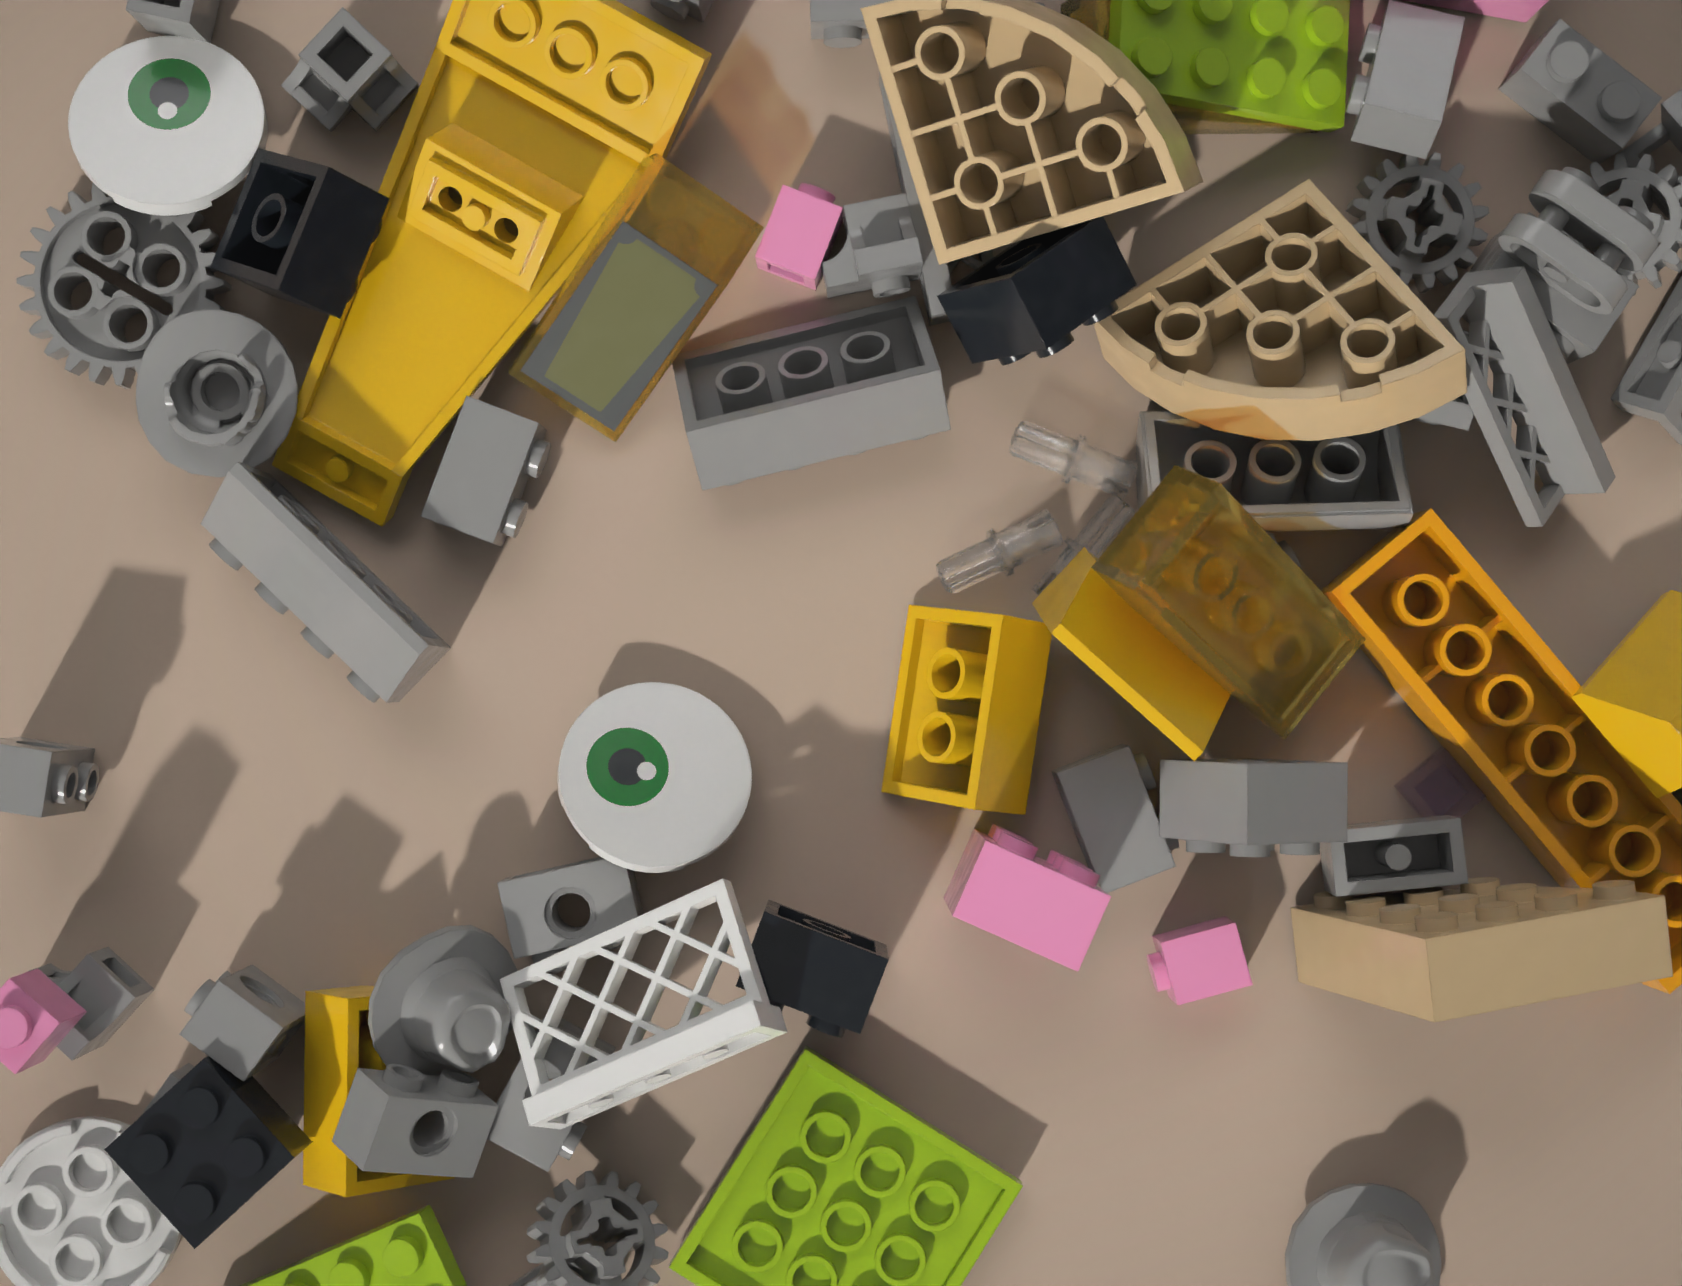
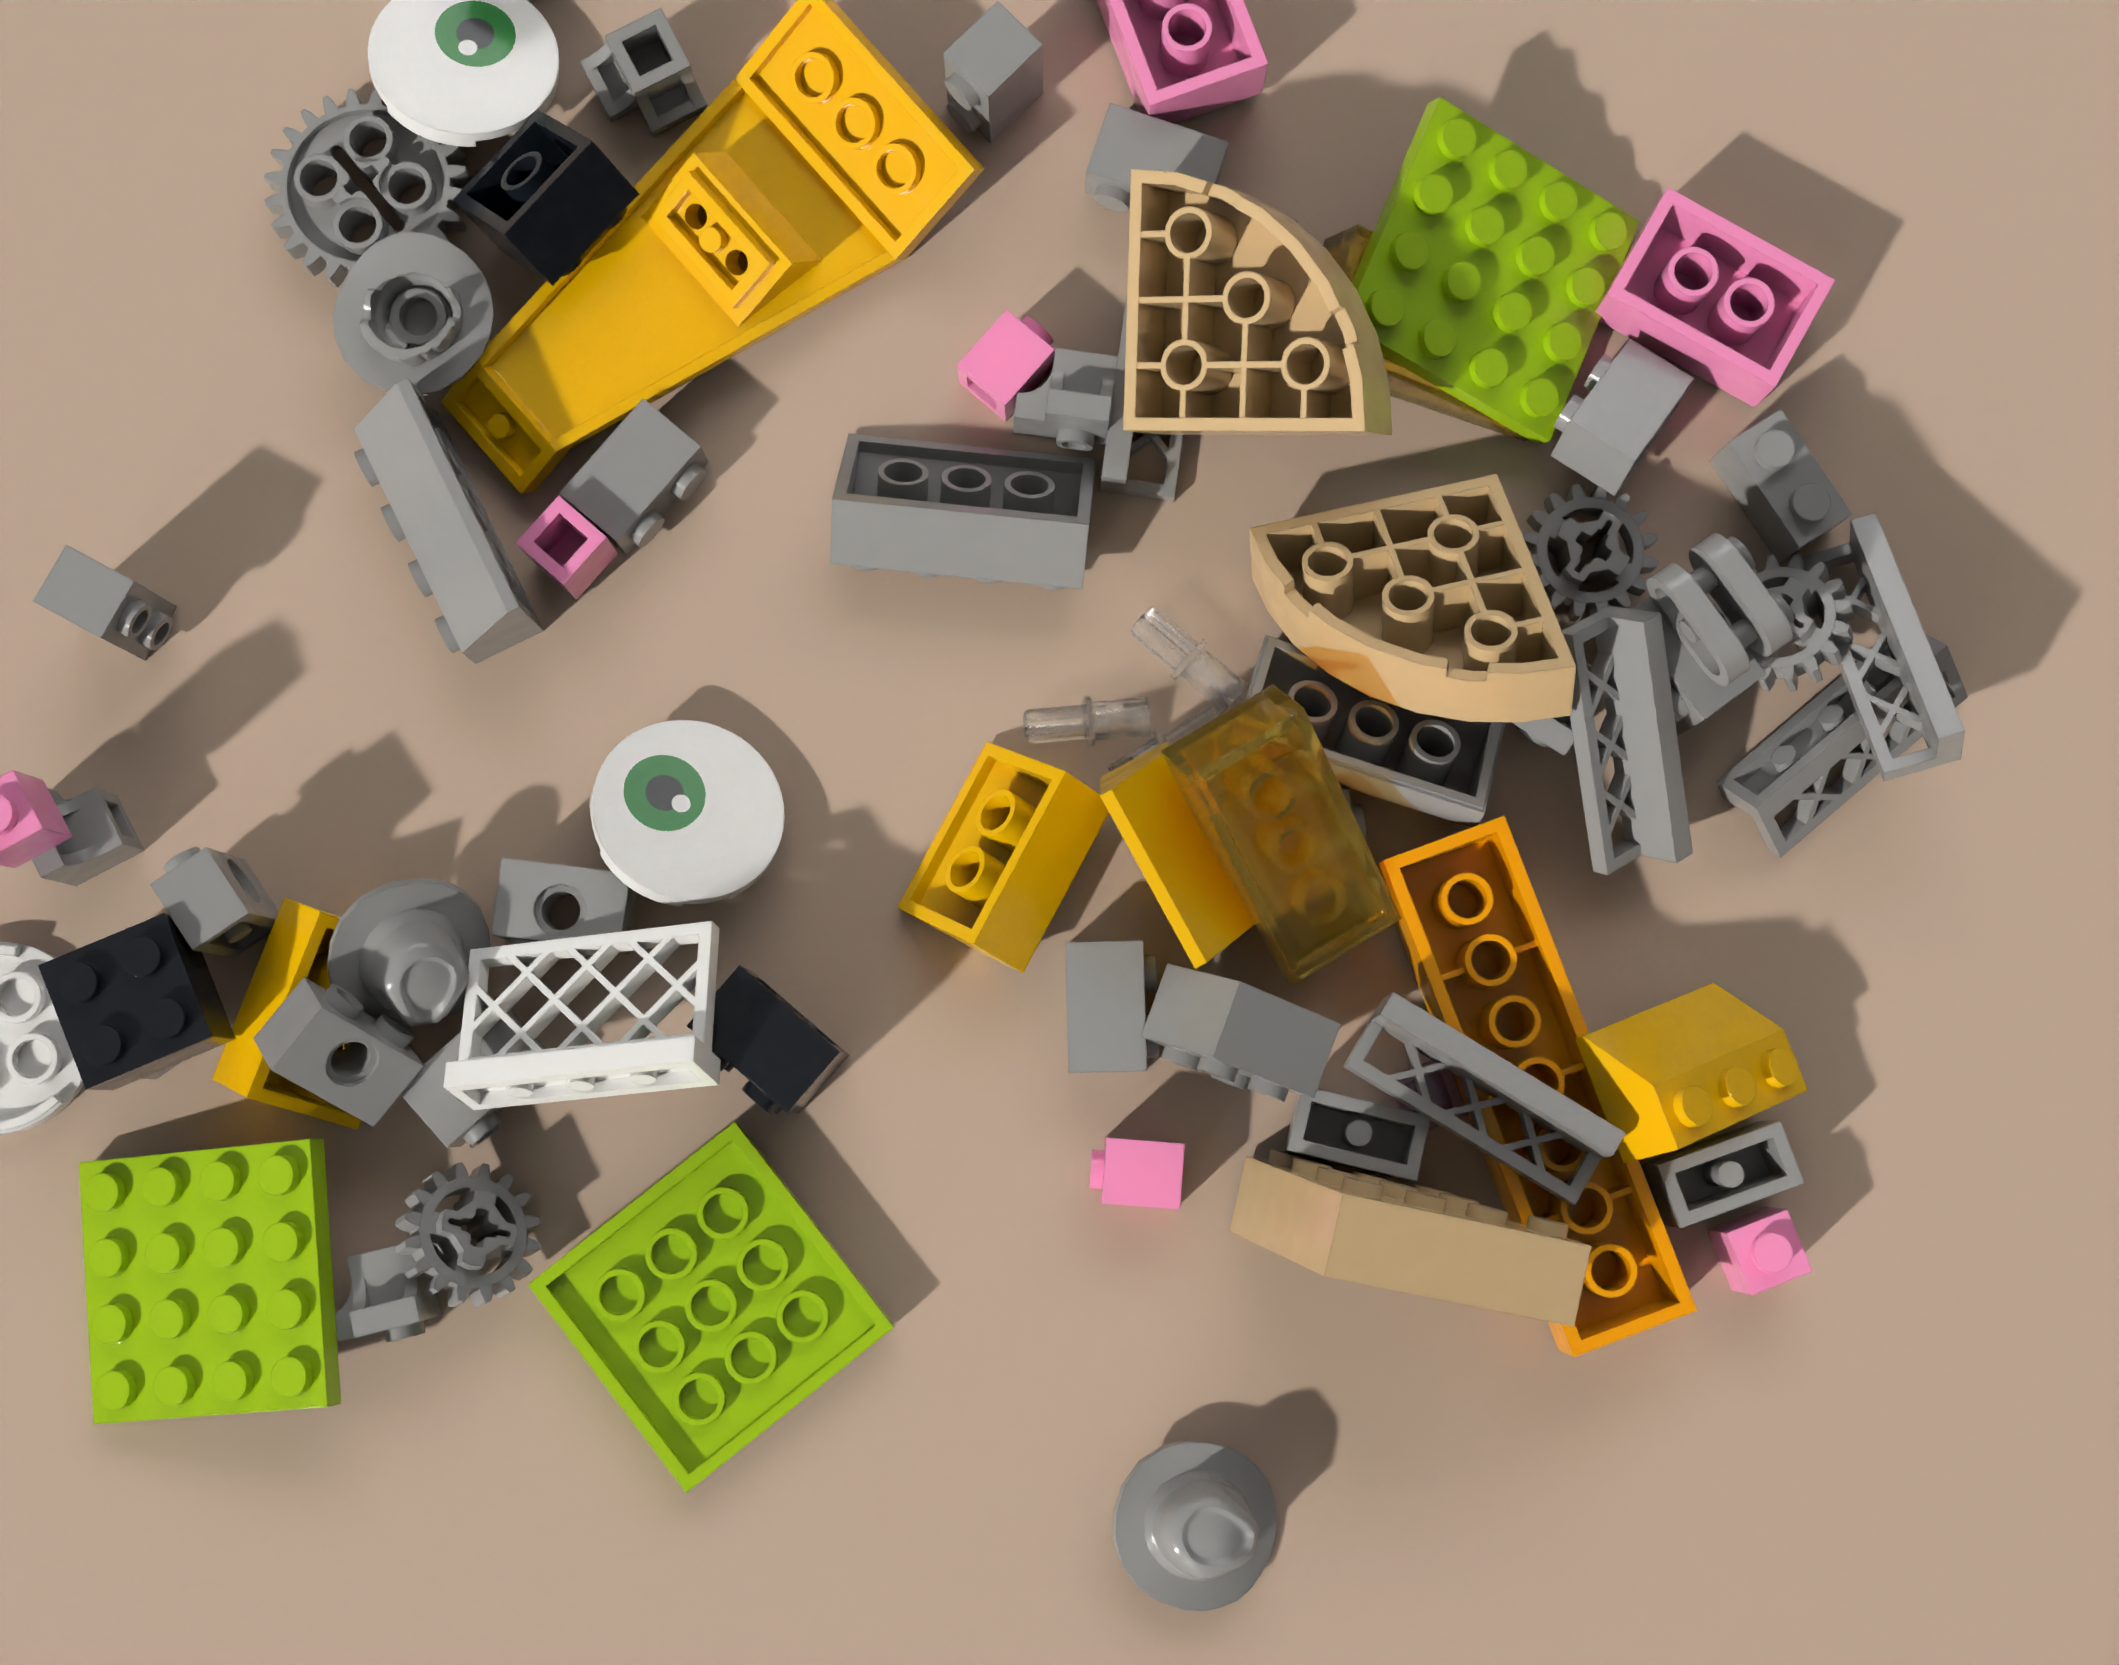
camera: 15 degrees right, 5 degrees down
(447, 565) = (567, 547): none -> bright pink brick
(635, 296) = (832, 365): slope -> none
(1026, 899) = (990, 1039): bright pink brick -> none
(1038, 293) = (1206, 488): black brick -> none
(1512, 762) = (1497, 1078): none -> light grey fence

